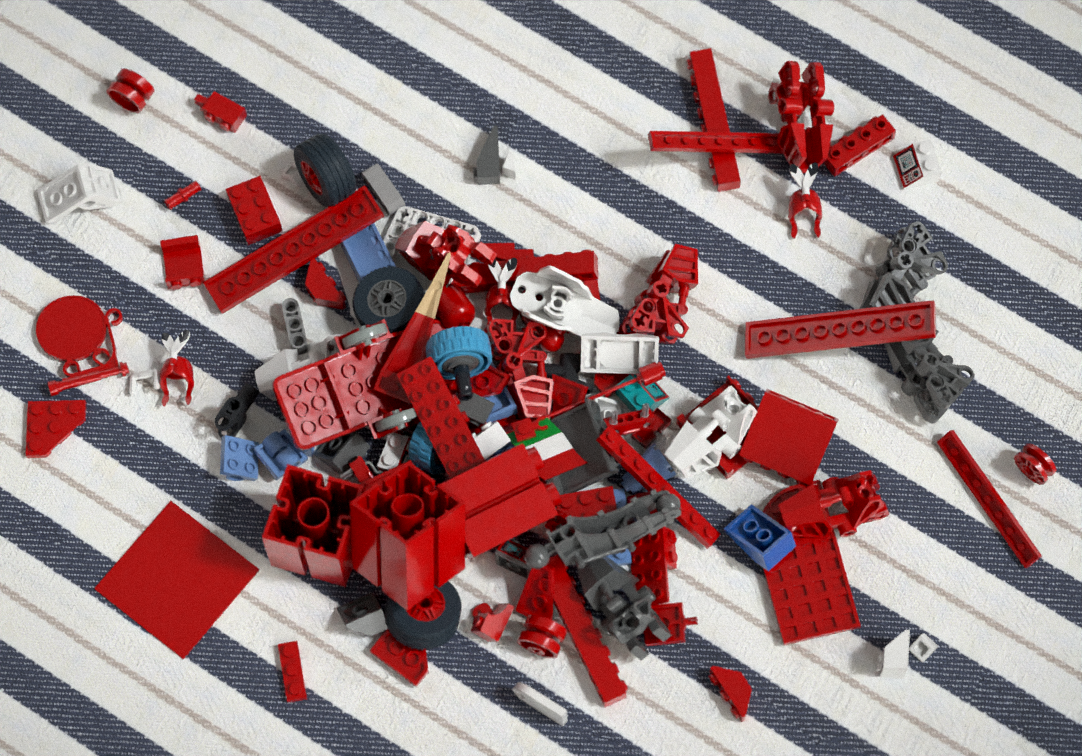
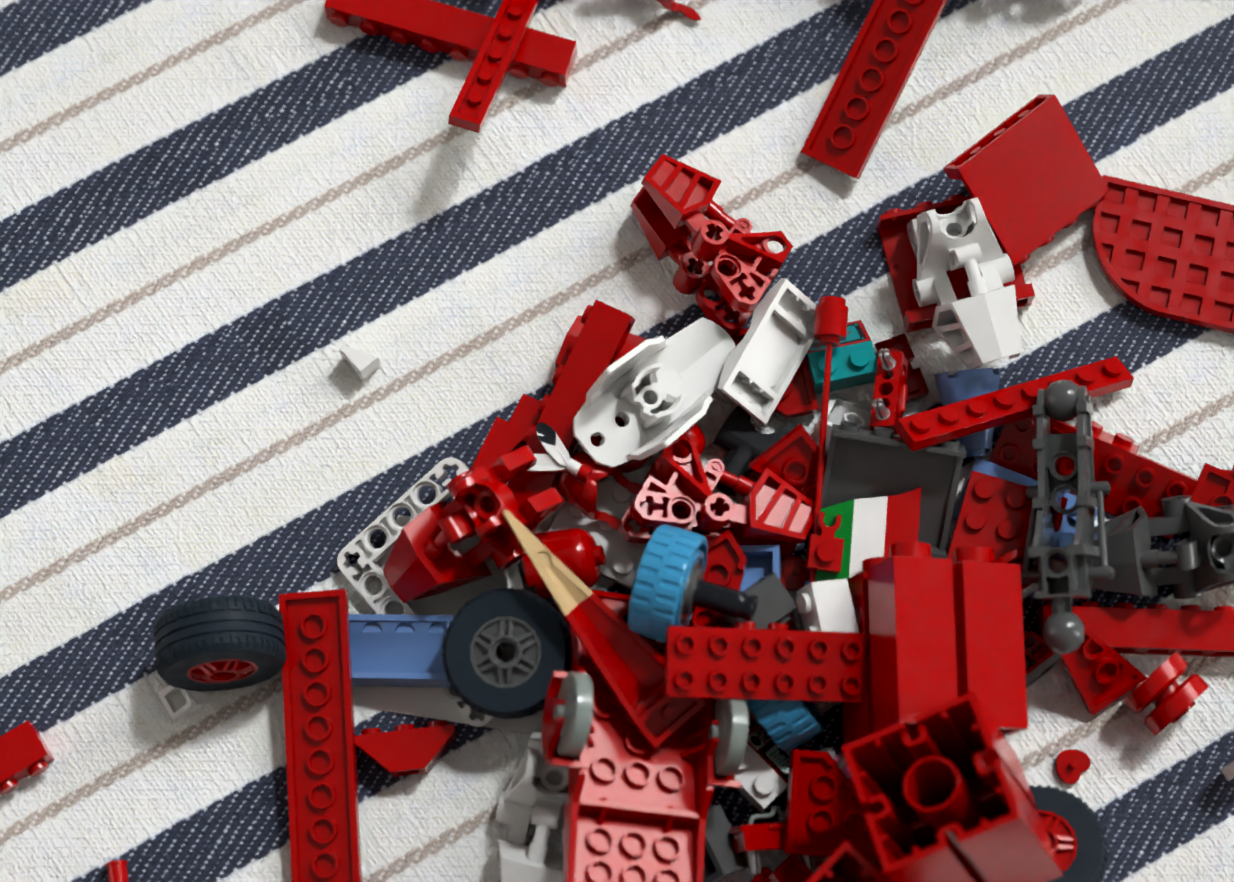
camera: 65 degrees left, 5 degrees up
(254, 210) = (213, 792): red brick -> none
(291, 318) = (438, 812): light grey beam -> none
(383, 189) = (290, 572): light grey beam -> none
(487, 167) = (339, 391): dark grey slope -> none
(491, 625) = (1102, 755): arch -> none
(761, 537) = (1158, 299): blue slope -> none
(806, 512) = (1163, 210): red piece -> none

